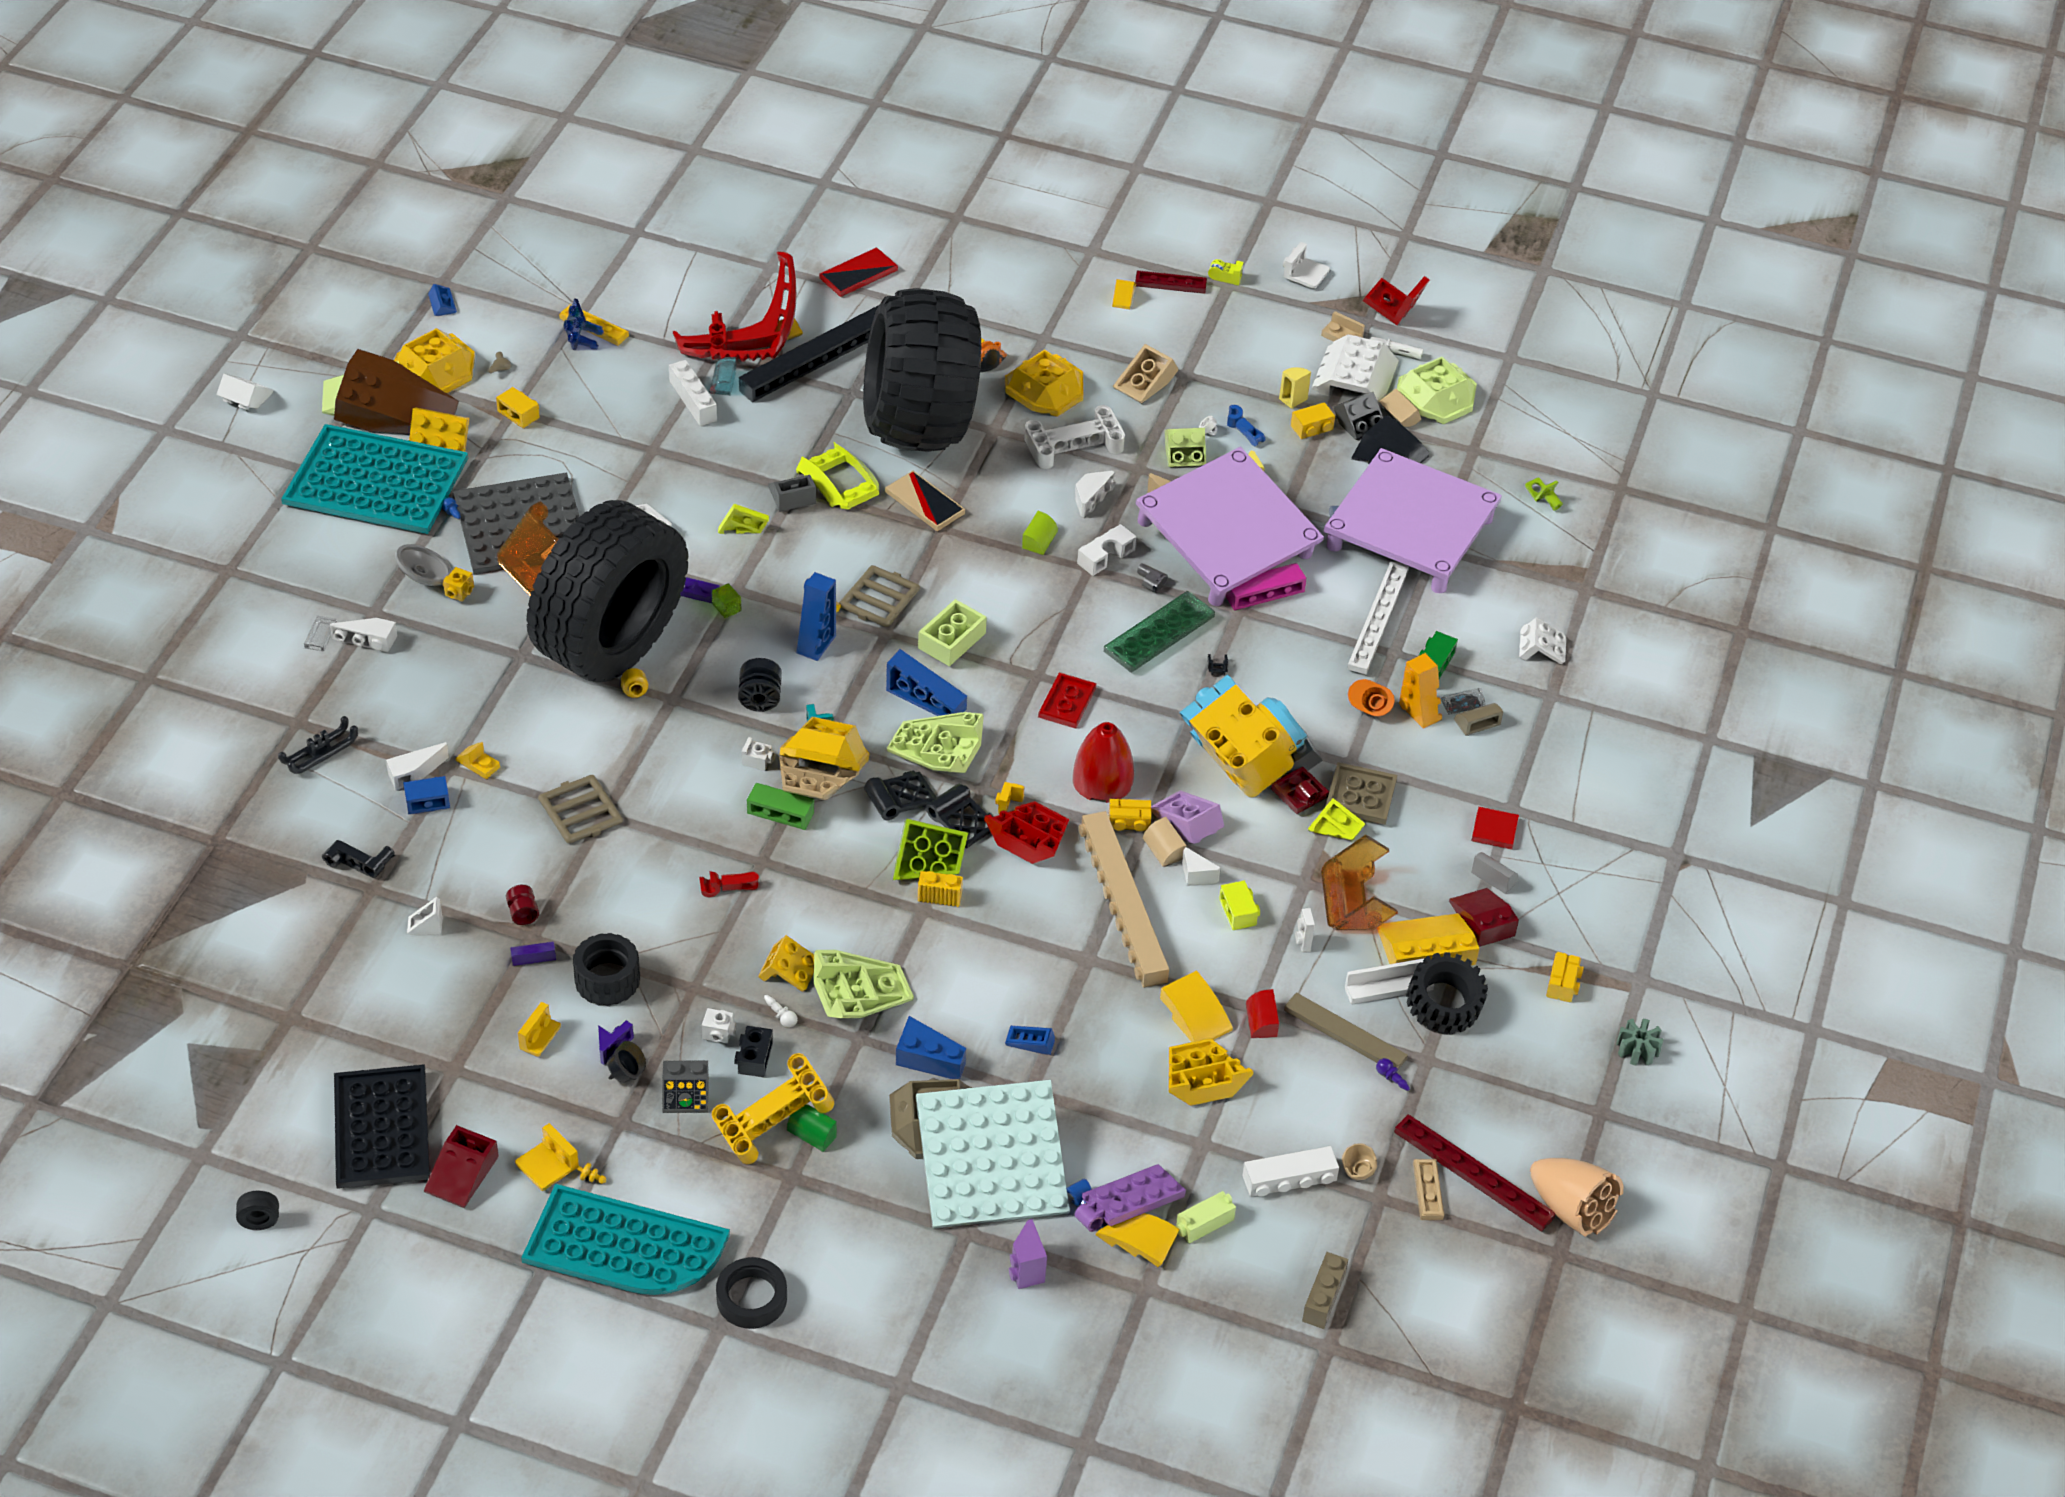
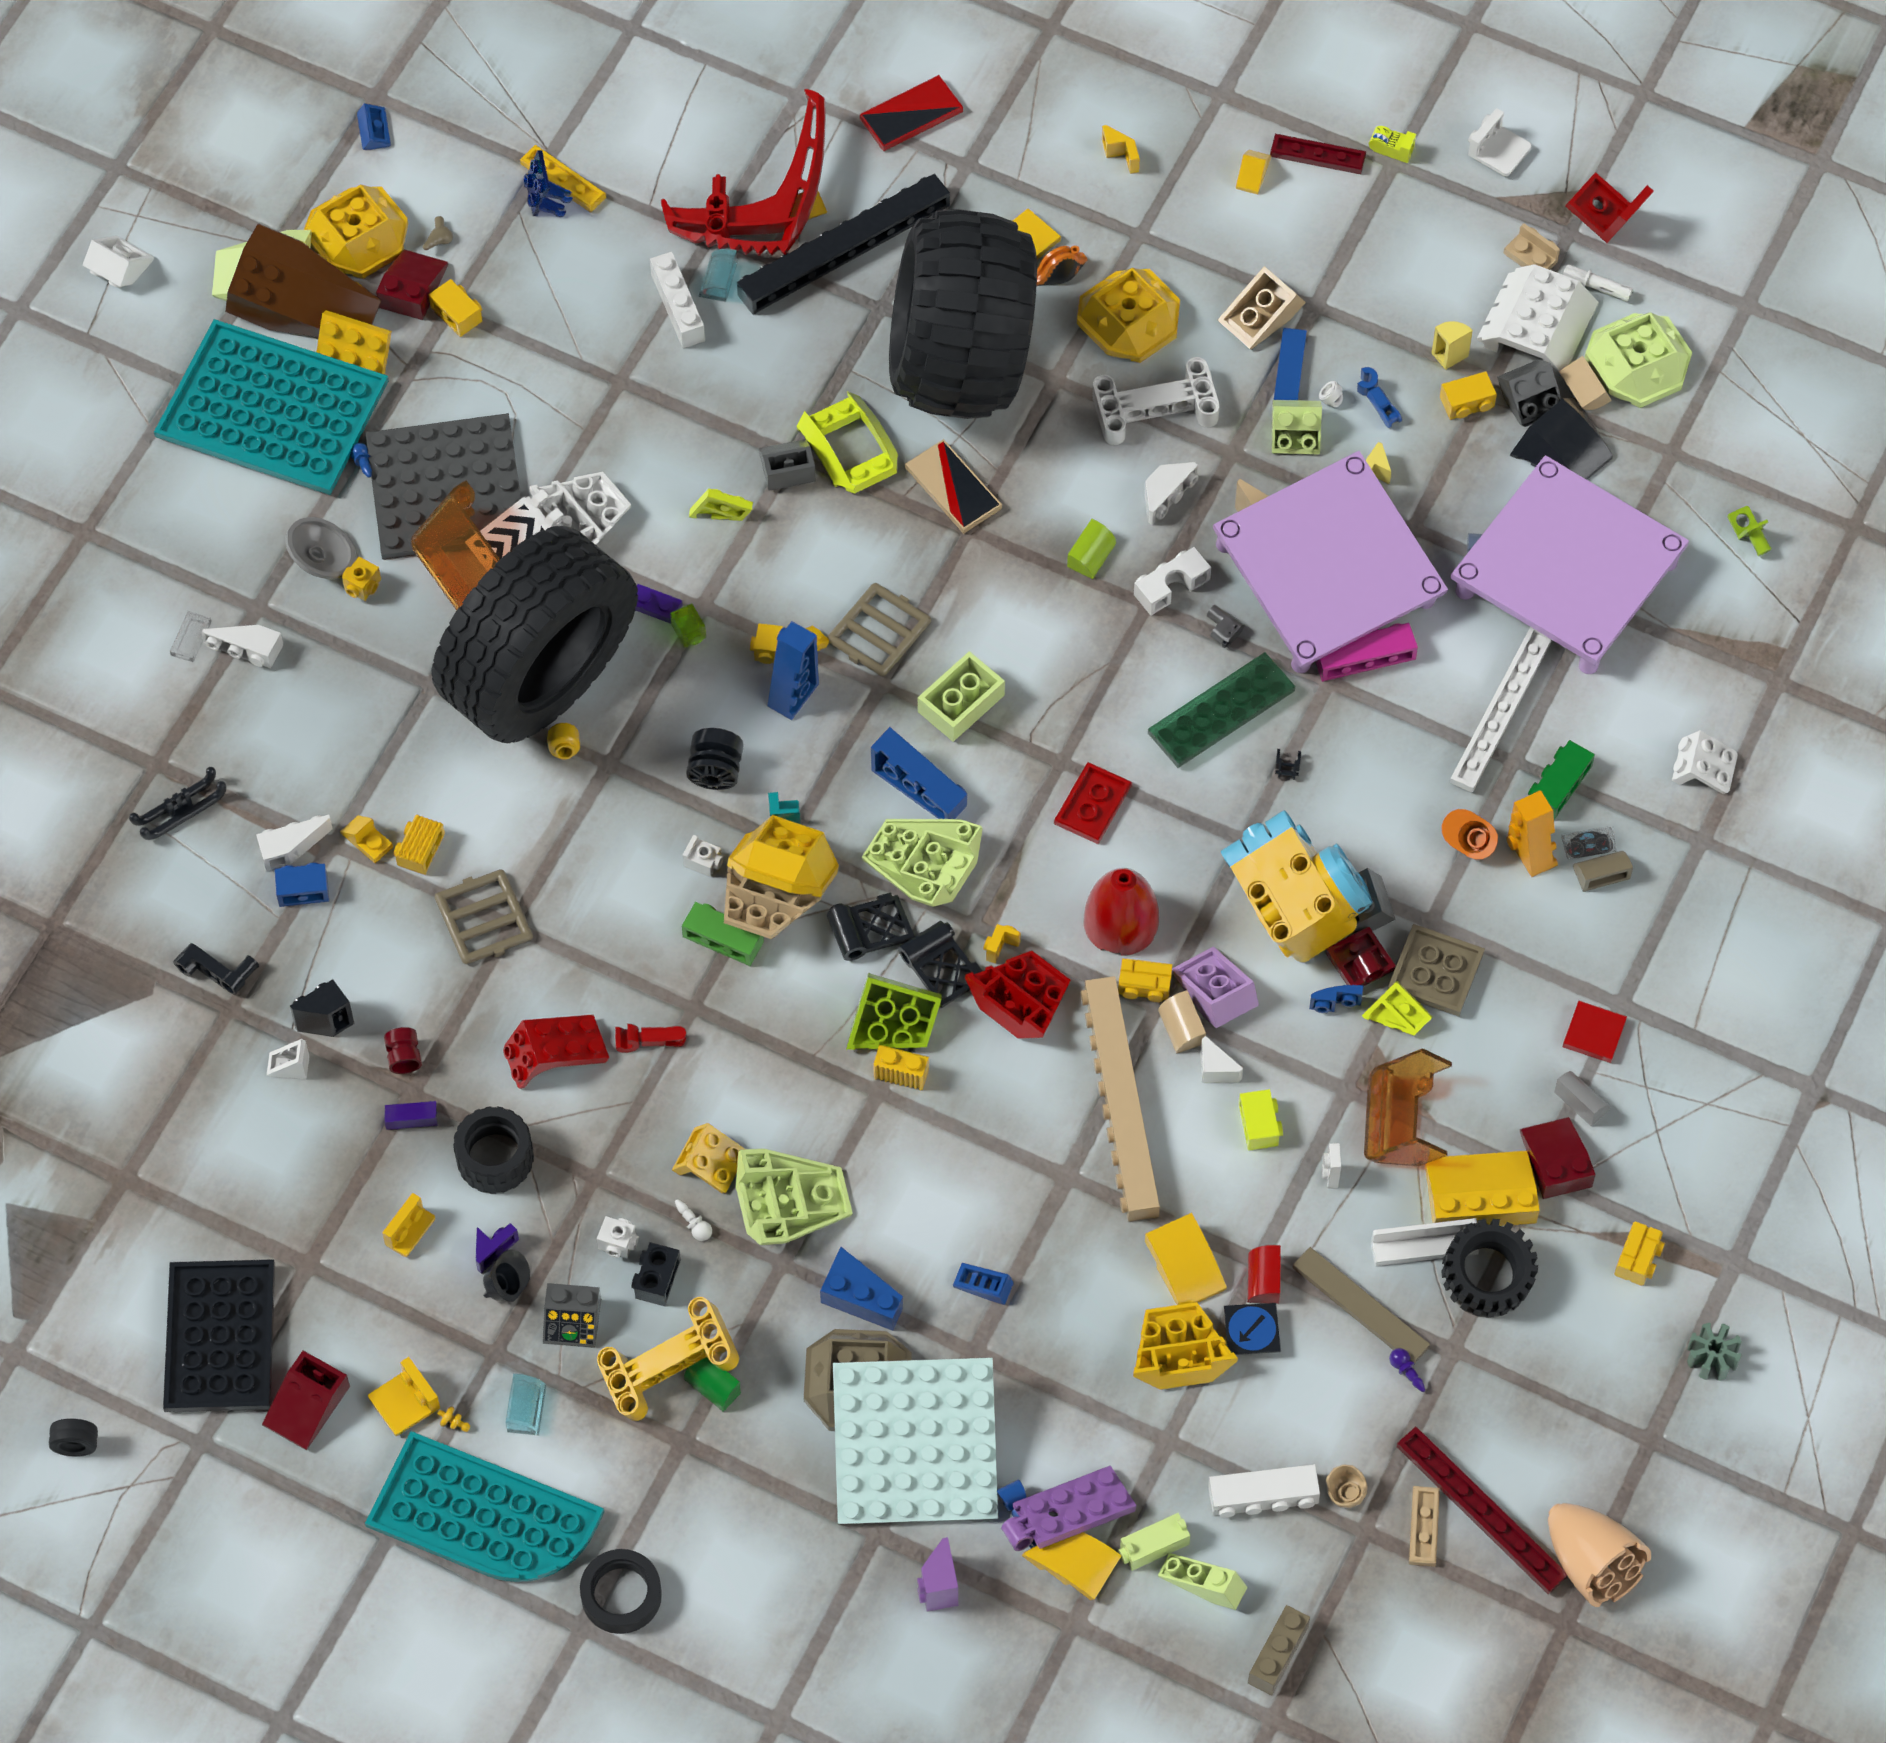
camera: 10 degrees right, 15 degrees up
(452, 879) = (322, 1011): none -> black slope
(478, 396) = (409, 282): none -> dark red slope
(522, 760) = (419, 844): none -> yellow brick
(645, 888) = (552, 1044): none -> red bracket
(652, 1157) = (525, 1405): none -> clear light blue brick
(791, 608) = (765, 643): none -> yellow brick
(1019, 281) = (1119, 144): none -> yellow slope
(1173, 408) = (1290, 364): none -> blue tile
(1254, 1243) = (1205, 1580): none -> yellowish green slope
(1260, 1053) = (1252, 1328): none -> piece
(1291, 814) = (1326, 999): none -> blue slope

